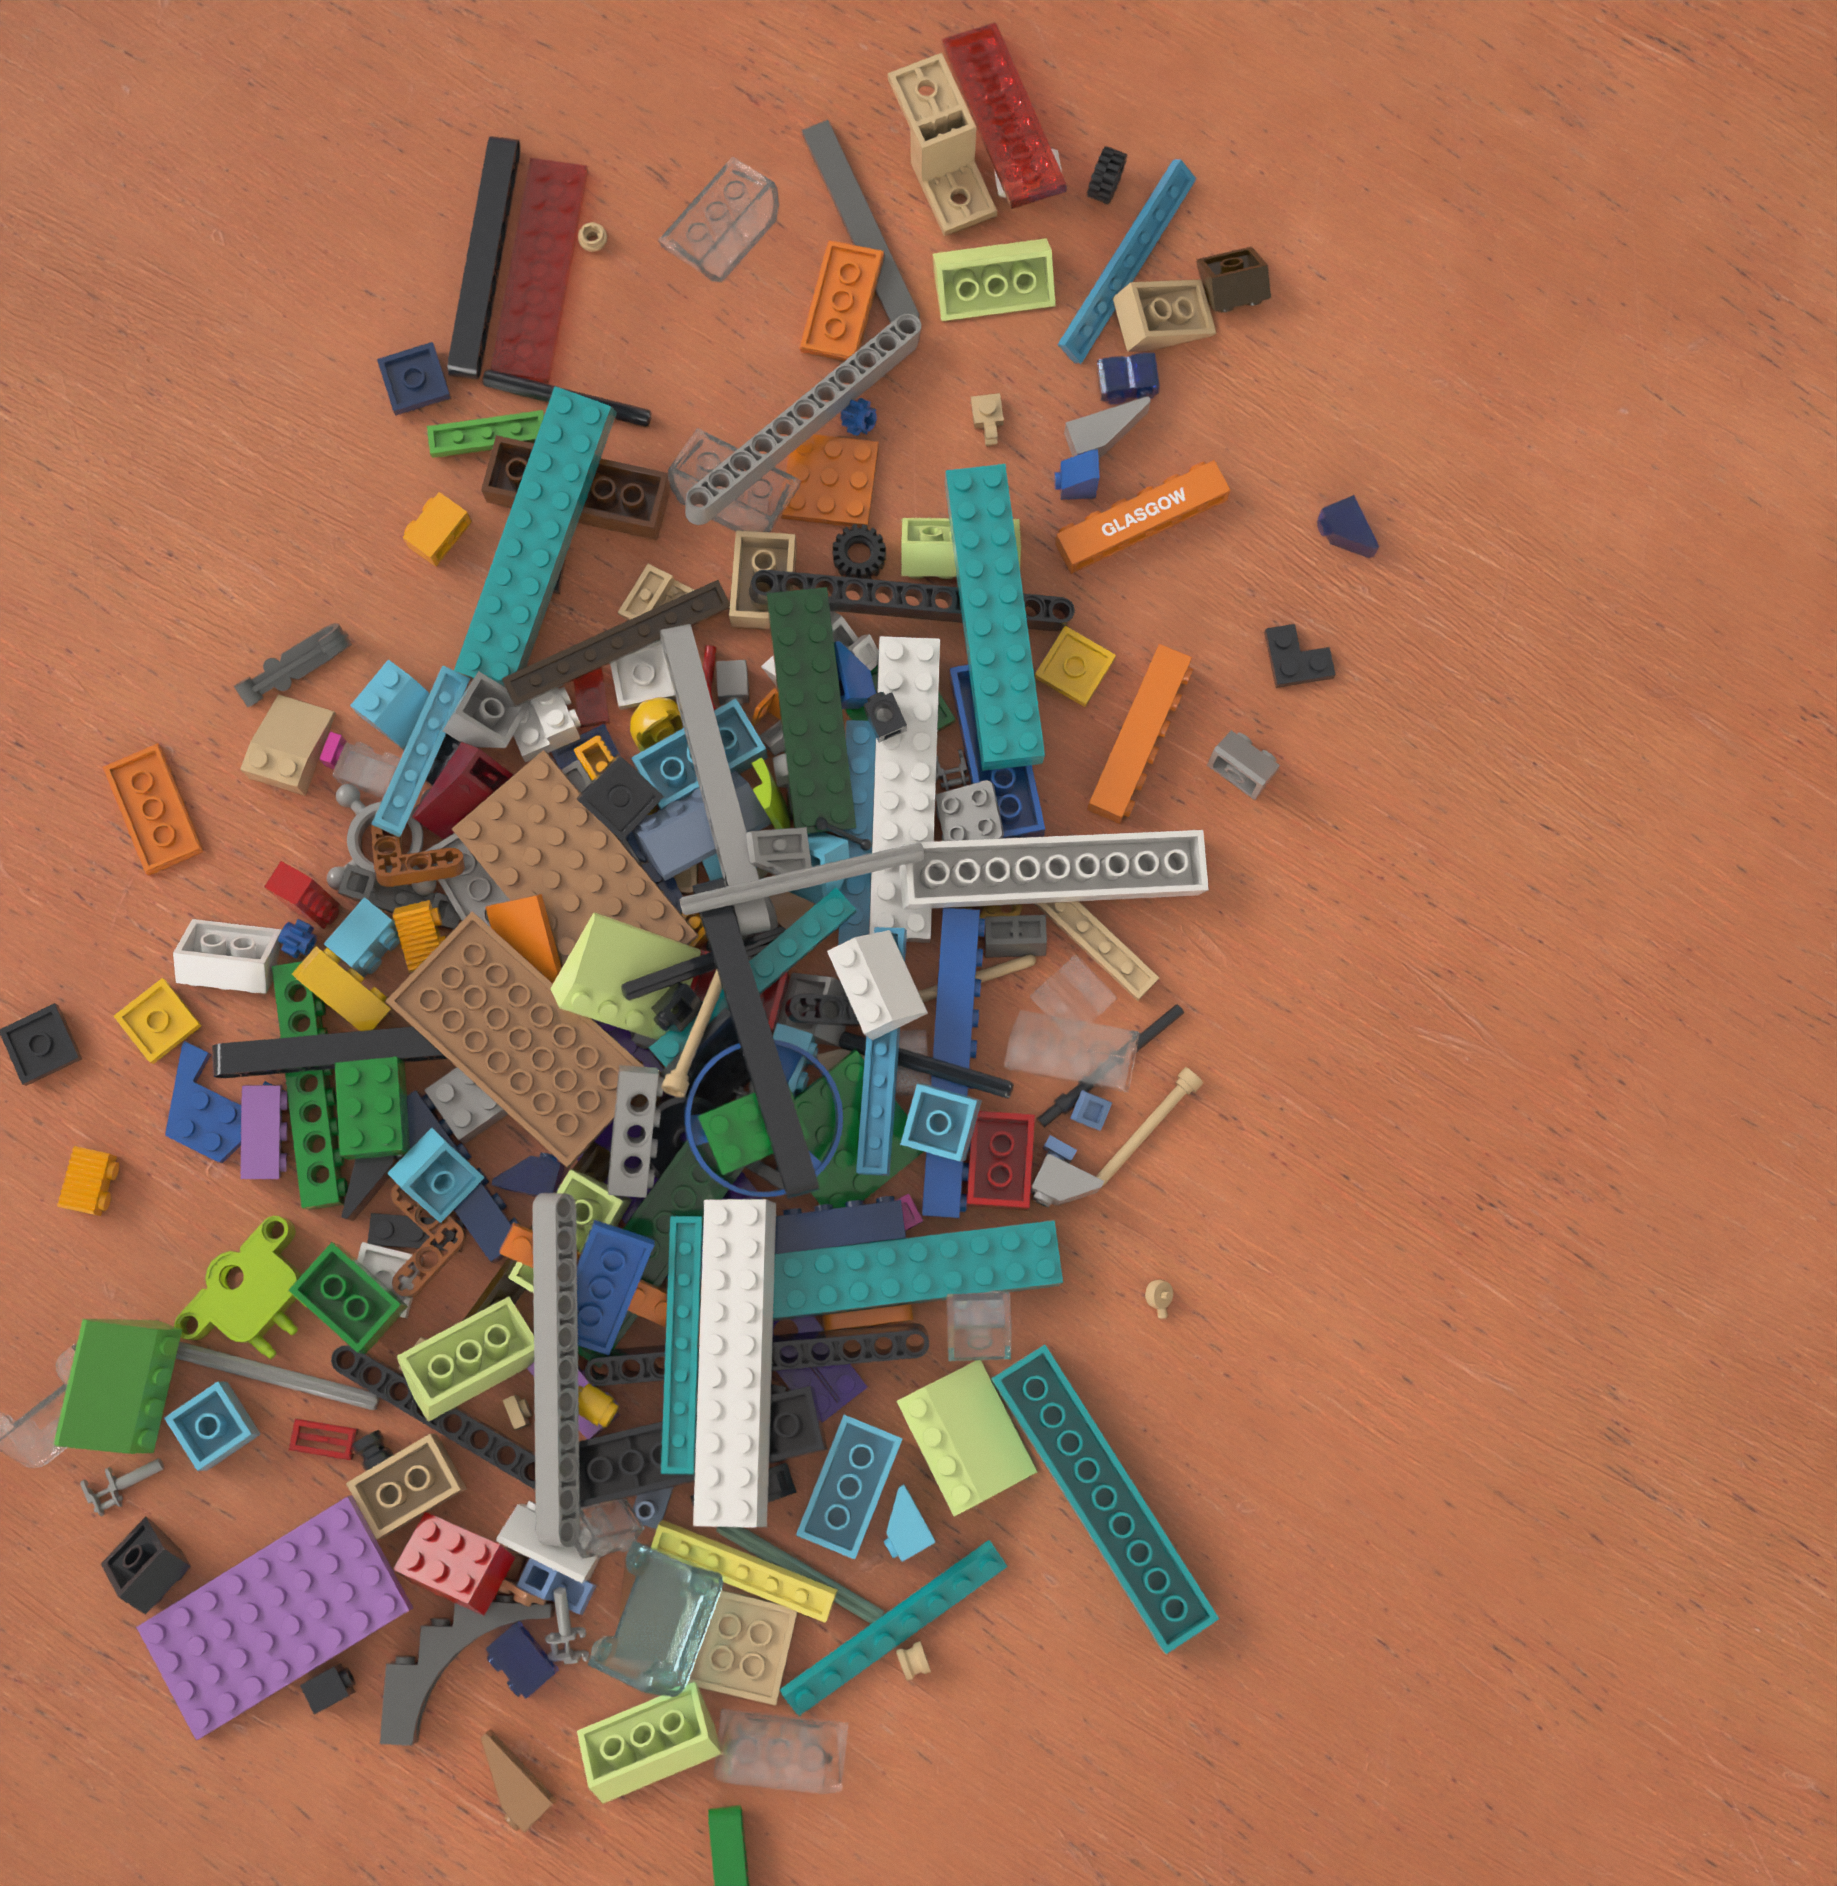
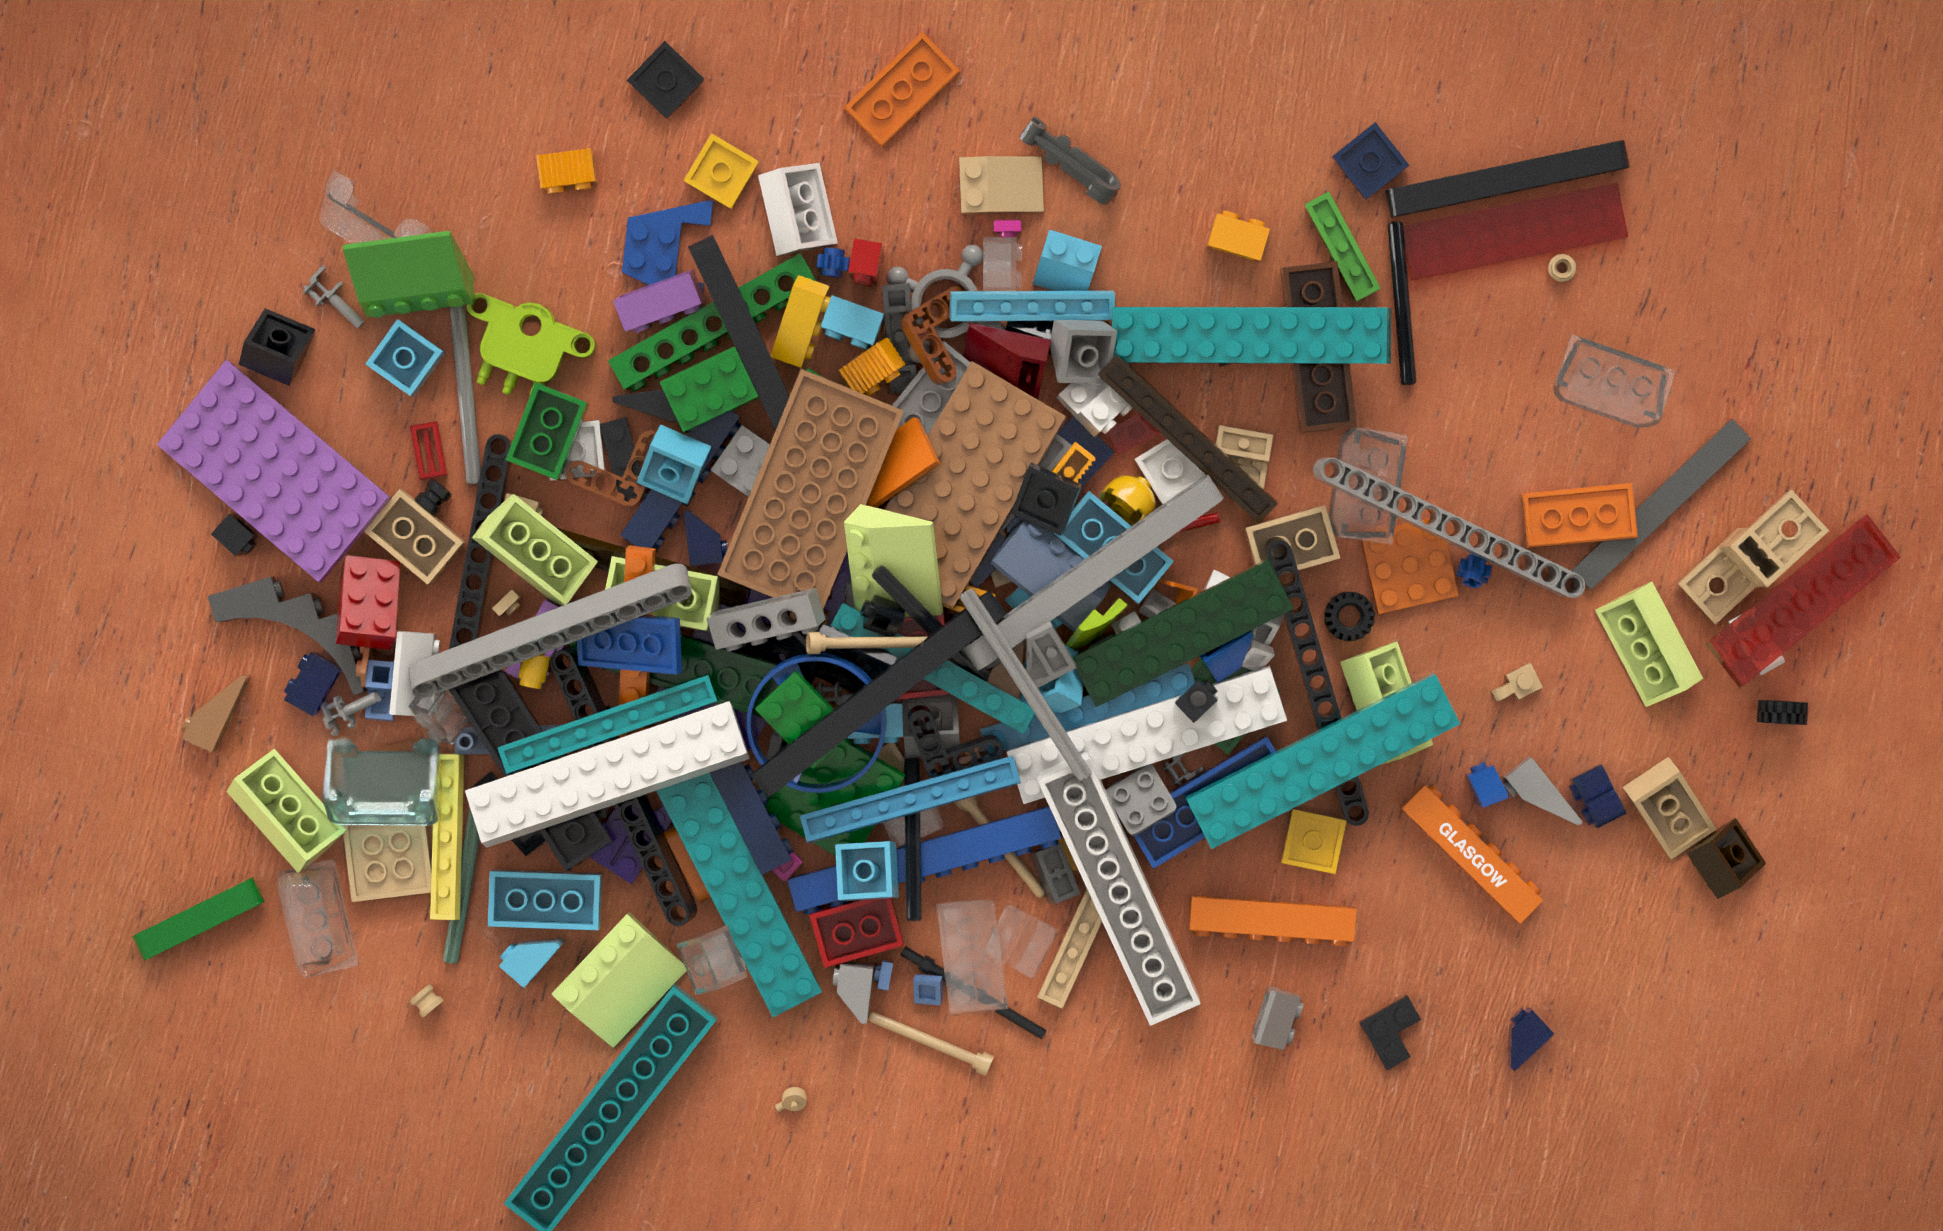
camera: 70 degrees right, 10 degrees up
(732, 681) = (1191, 550): light grey brick -> none
(822, 824) = (1086, 678): black hinge -> none
(877, 983) = (963, 777): white slope -> none
(893, 1628) = (446, 975): teal plate -> none
(1127, 260) = (1709, 757): dark azure plate -> none

